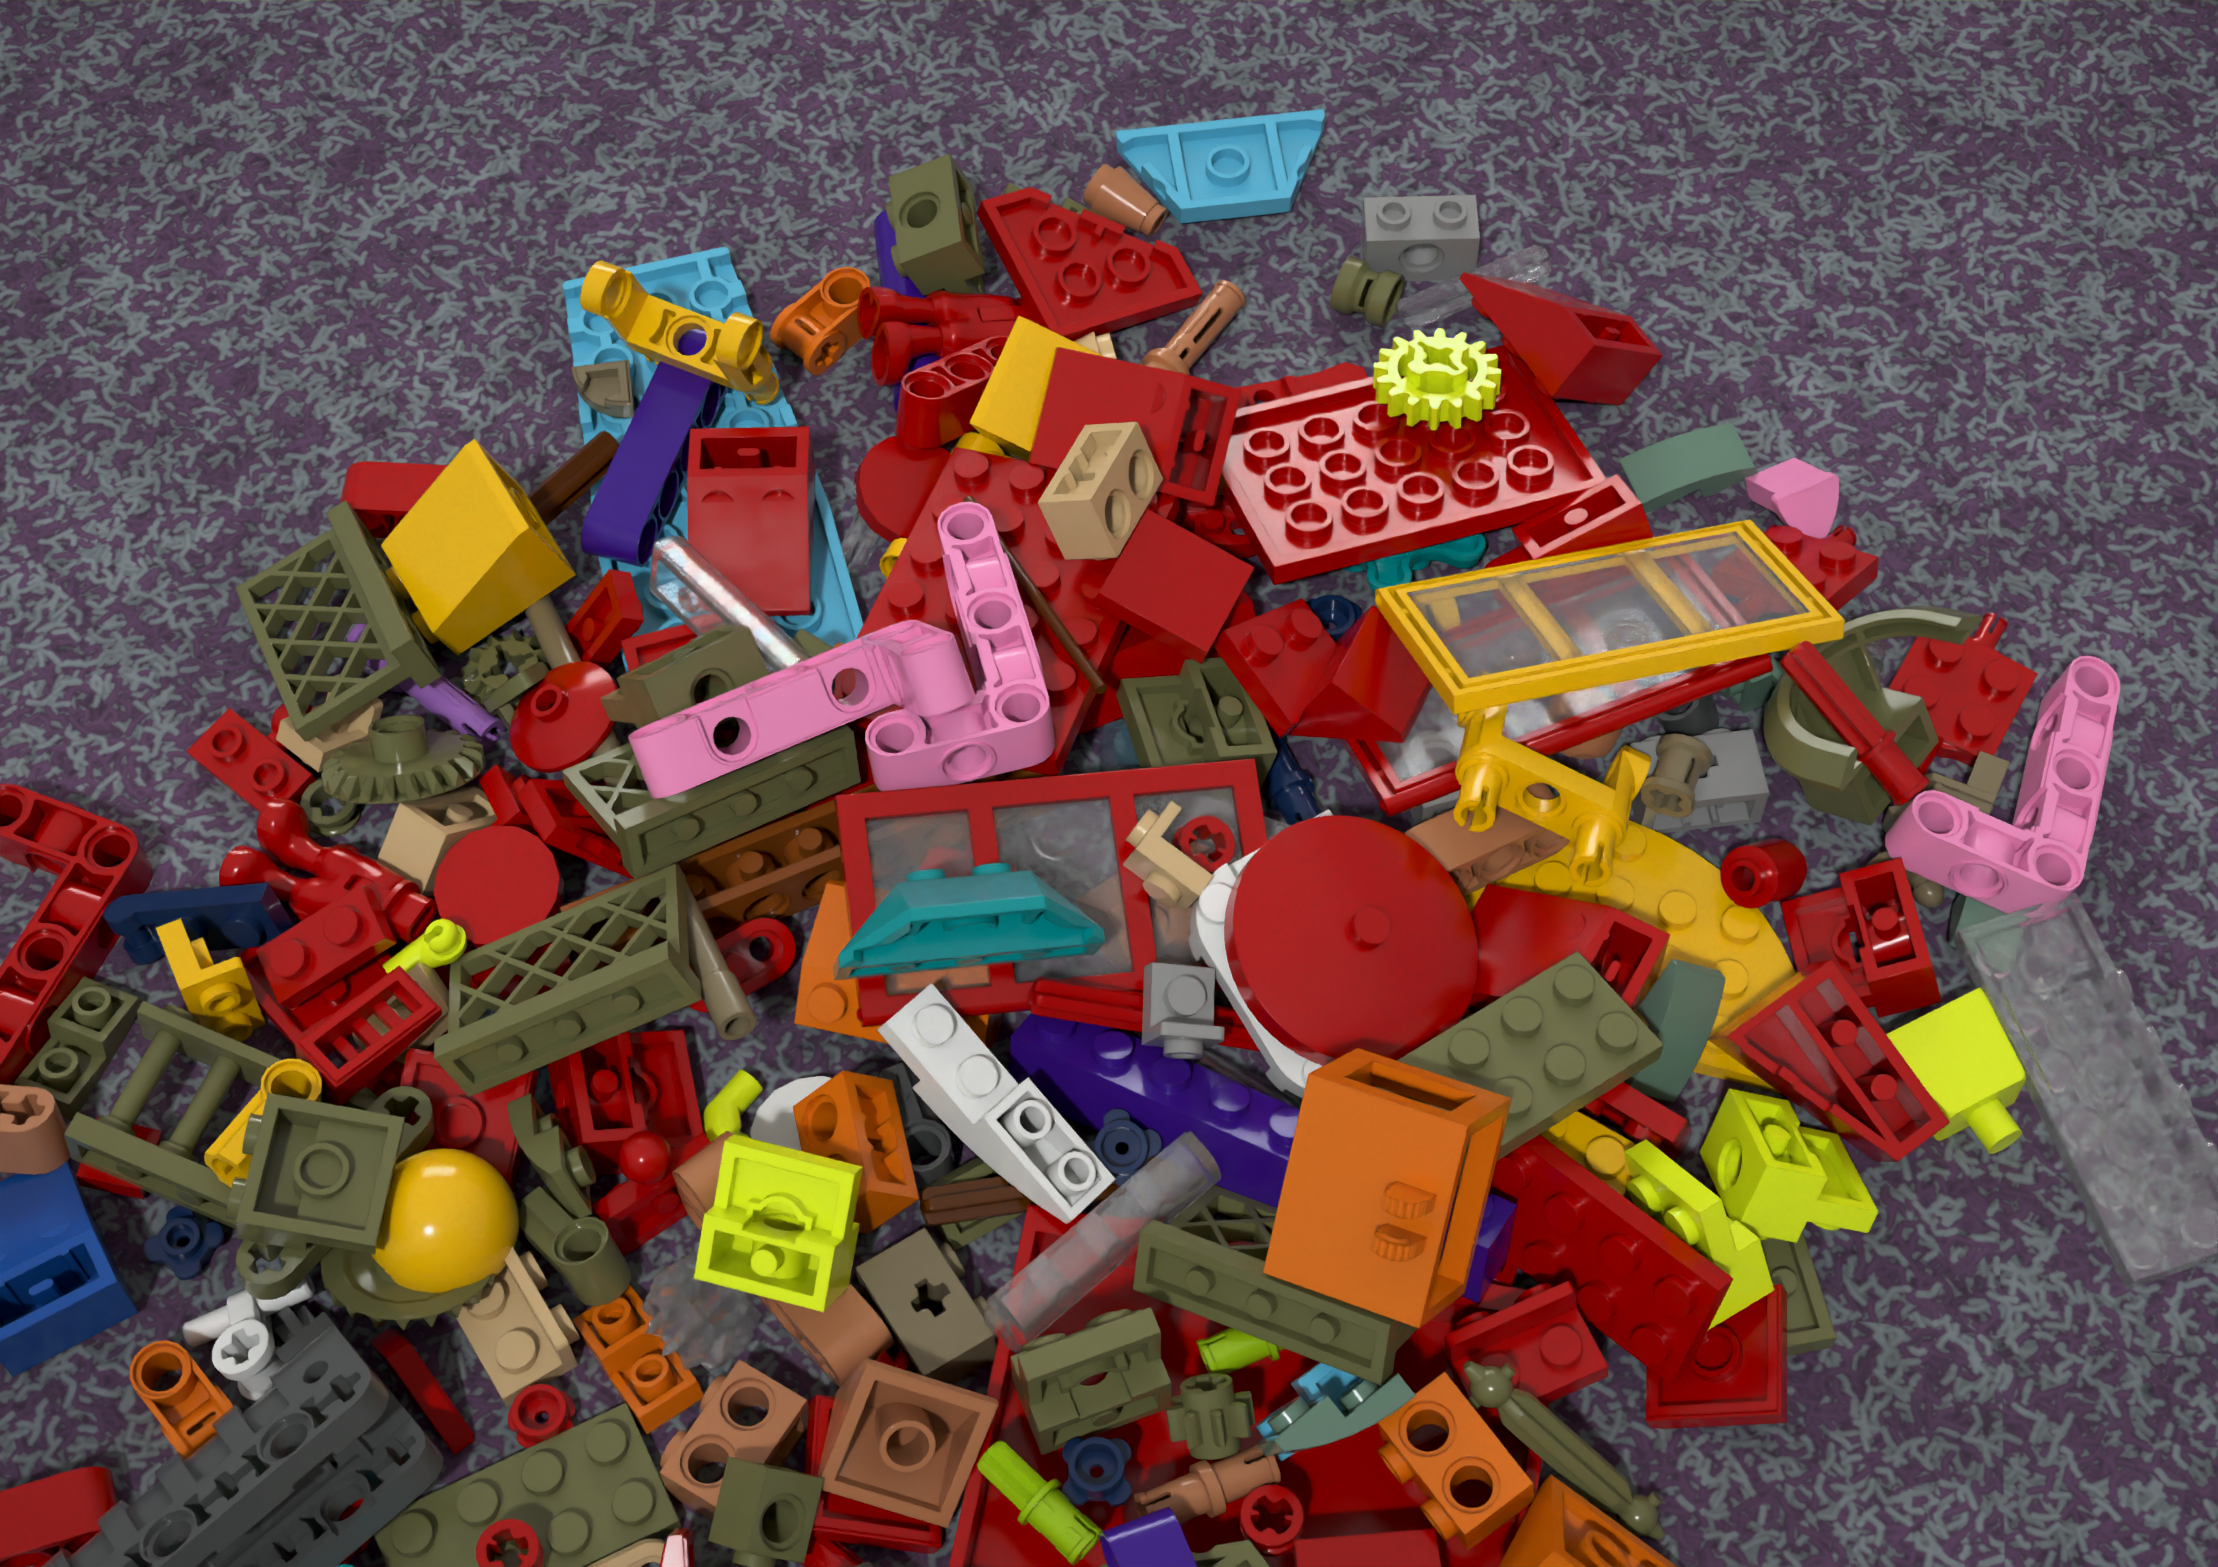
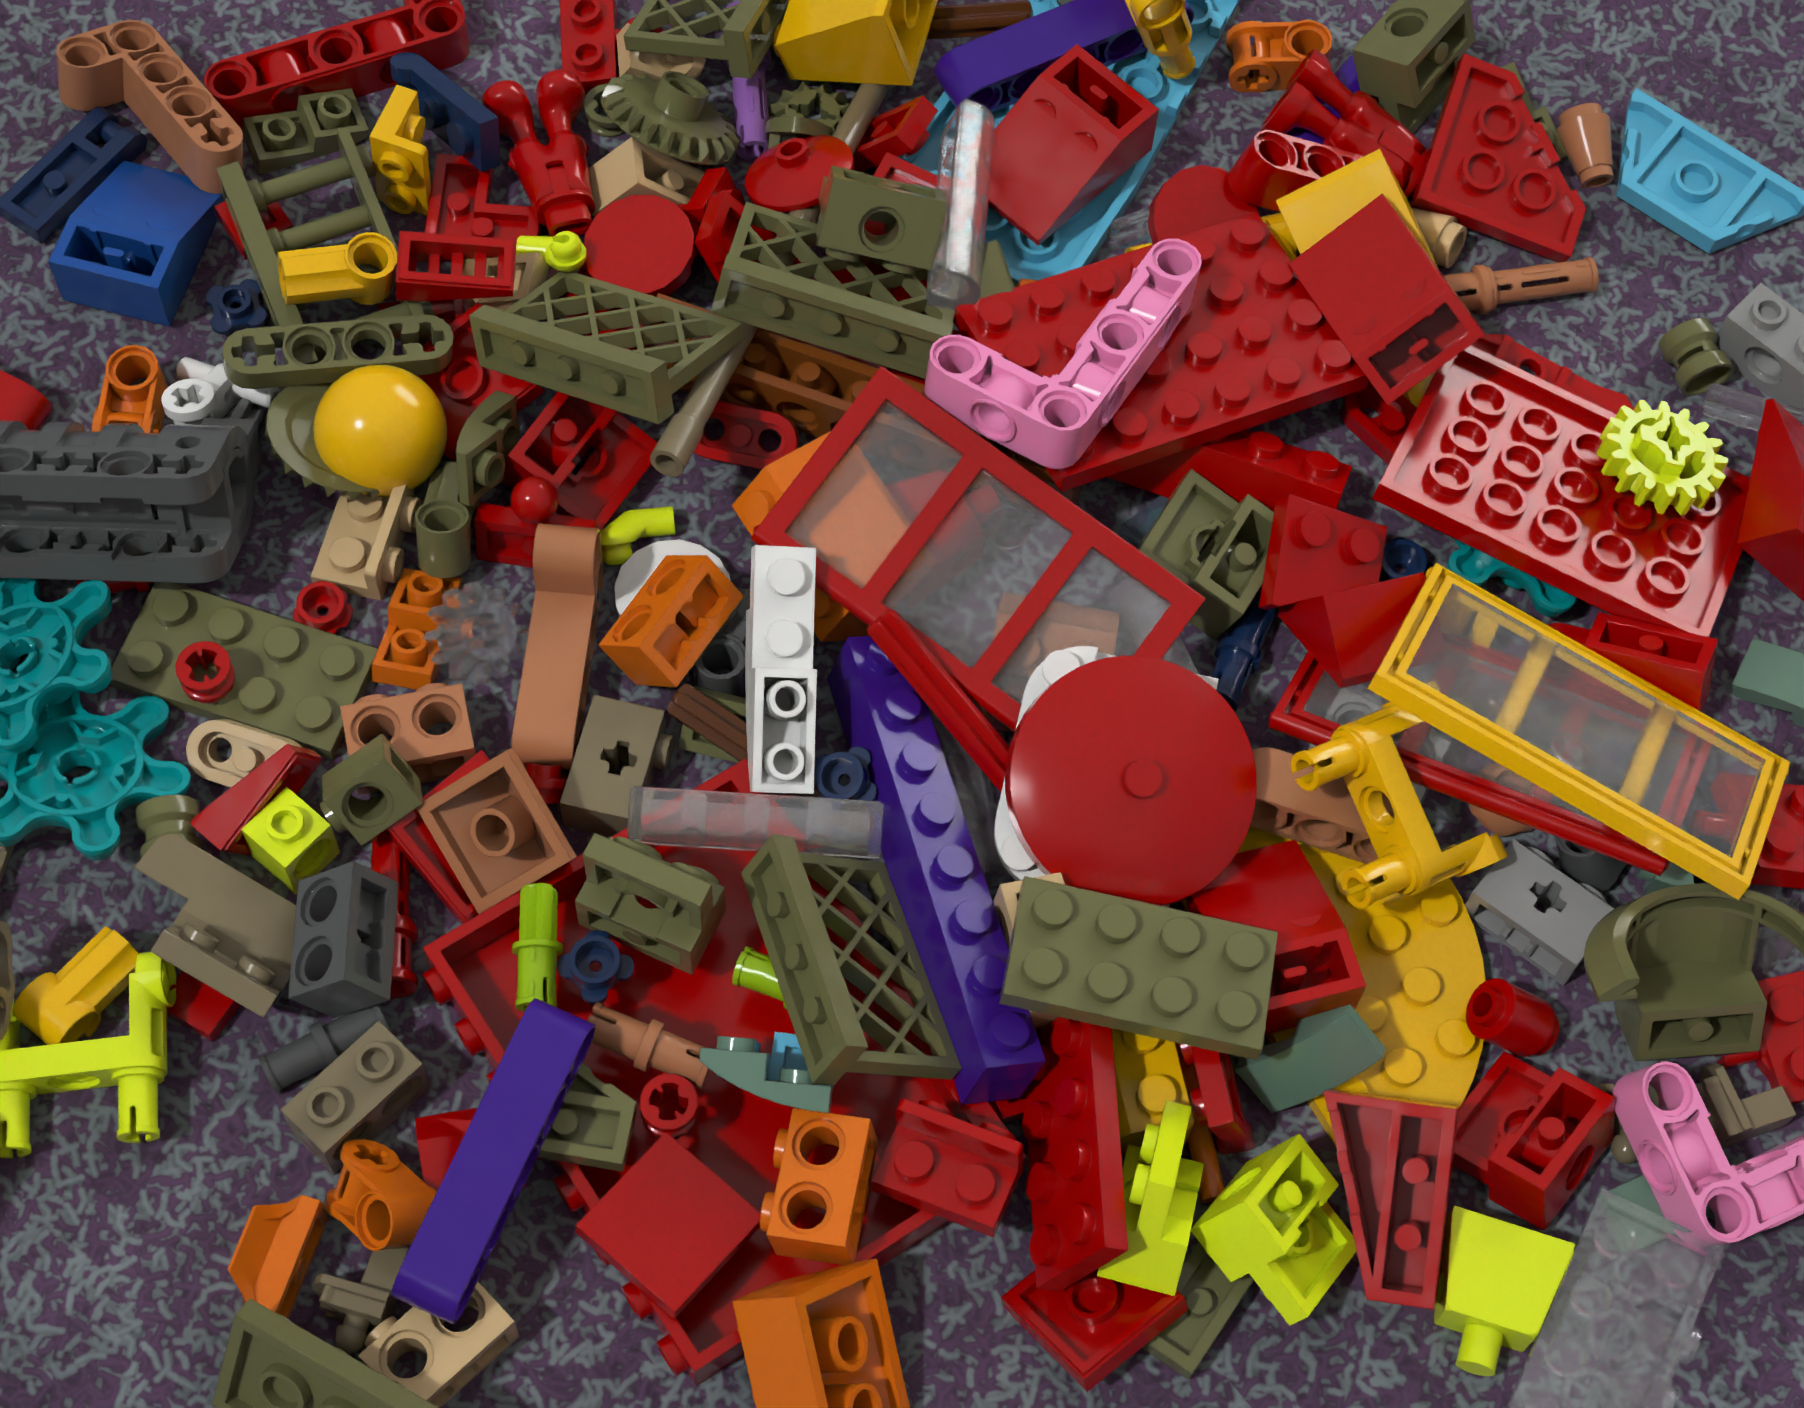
camera: 40 degrees right, 5 degrees up
(315, 1175) = (319, 322): olive plate -> none
(325, 946) = (496, 191): red plate -> none
(423, 1389) = (271, 523): red tile -> none
(781, 1224) = (557, 617): neon yellow brick -> none
(895, 665) = (921, 283): bright pink beam -> none
(967, 923) = (873, 525): teal wedge -> none
(1051, 618) = (1180, 355): reddish brown piece -> none
(1100, 491) = (1297, 318): tan brick -> none
(1166, 871) = (1052, 620): tan bracket -> none
(1173, 586) = (1286, 432): red tile -> none
(1179, 1010) = (967, 719): light grey bracket -> none
(1206, 828) = (1119, 617): red bush -> none
(1210, 1416) = (698, 1000): olive gear -> none
(1378, 1185) = (927, 936): orange piece -> none
(1563, 1449) = (907, 1254): olive wheel -> none
(1676, 775) = (1511, 887): dark tan bush -> none
(1853, 722) = (1681, 967): red axle -> none

